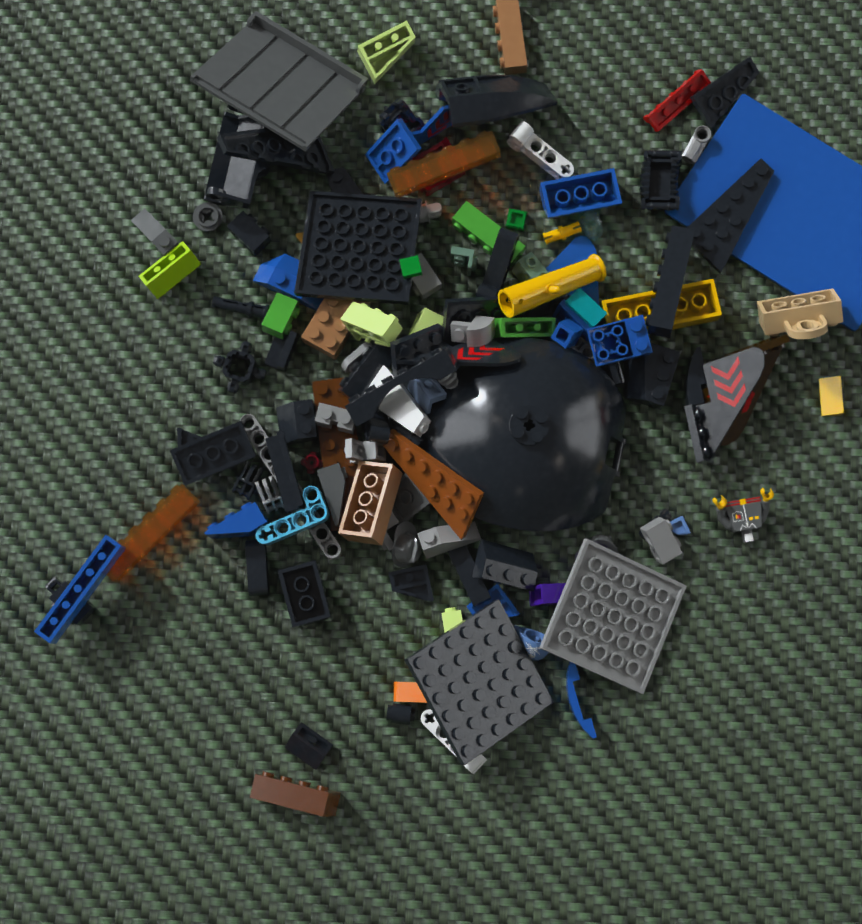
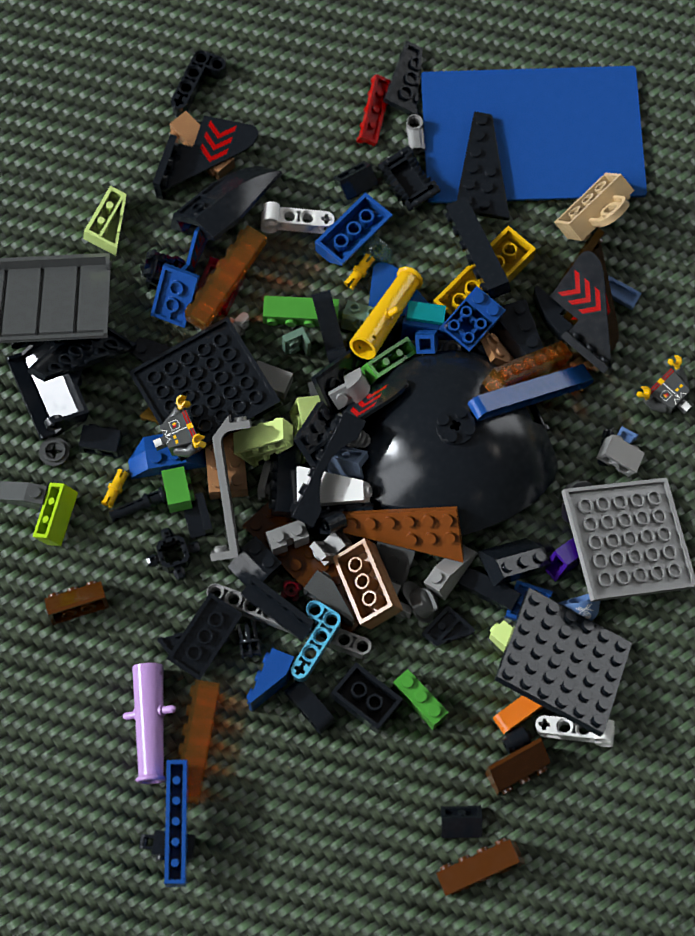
camera: 40 degrees left, 10 degrees down
(123, 490) = (149, 721): none -> lavender piece
(135, 353) = (76, 602): none -> reddish brown slope
(233, 280) = (115, 488): none -> yellow pin
(270, 497) = (278, 640): light grey arm -> none
(283, 395) = (222, 552): none -> light grey panel
(307, 271) = (179, 432): none -> dark grey torso
(347, 625) = (420, 699): none -> bright green brick
(383, 738) = (518, 767): none -> reddish brown slope
(410, 267) = (262, 373): green tile -> none
(516, 219) = (313, 285): green tile -> none
(519, 42) = (215, 143): none -> black piece
(585, 724) = (672, 642): blue slope -> none
(617, 151) = (356, 179): none -> black panel
(618, 437) = (530, 392): none -> blue beam
(623, 382) = (495, 350): none -> medium nougat wing
(633, 414) = (528, 367): none -> clear orange brick
(770, 403) = (623, 293): none -> medium blue tile
(831, 396) = (666, 256): yellow slope -> none

